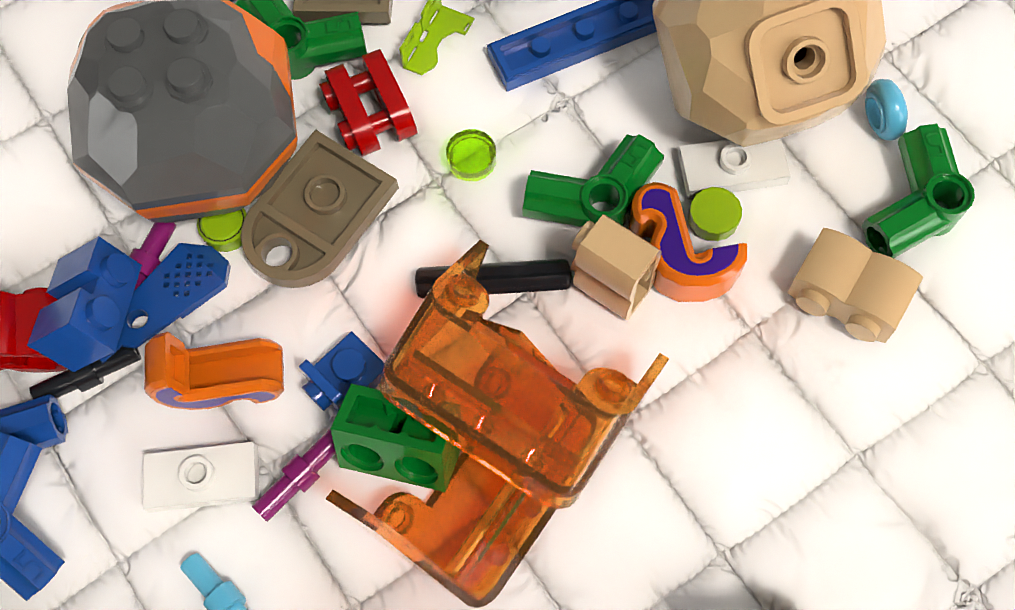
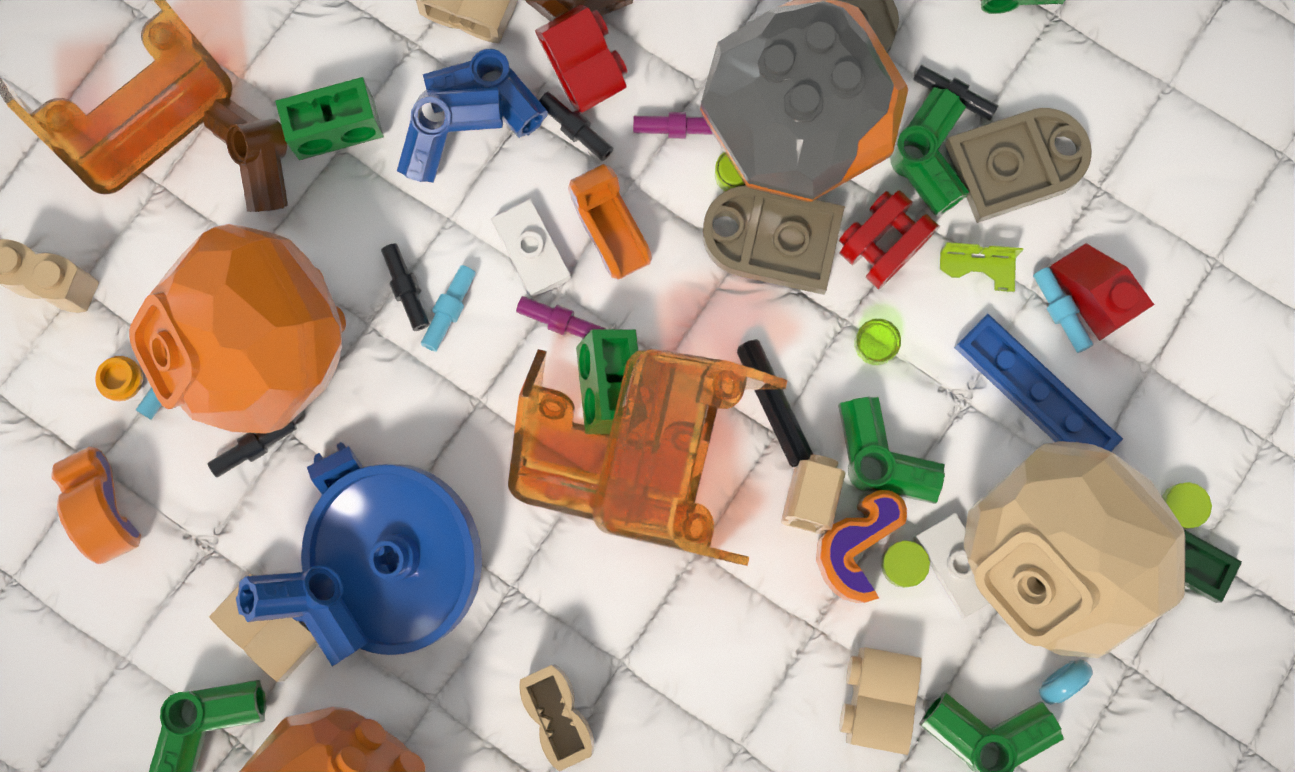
camera: 65 degrees right, 10 degrees up
(91, 307) = (621, 107): blue brick -> none
(161, 303) = (650, 154): blue piece -> none
(343, 365) = (652, 318): blue bracket -> none

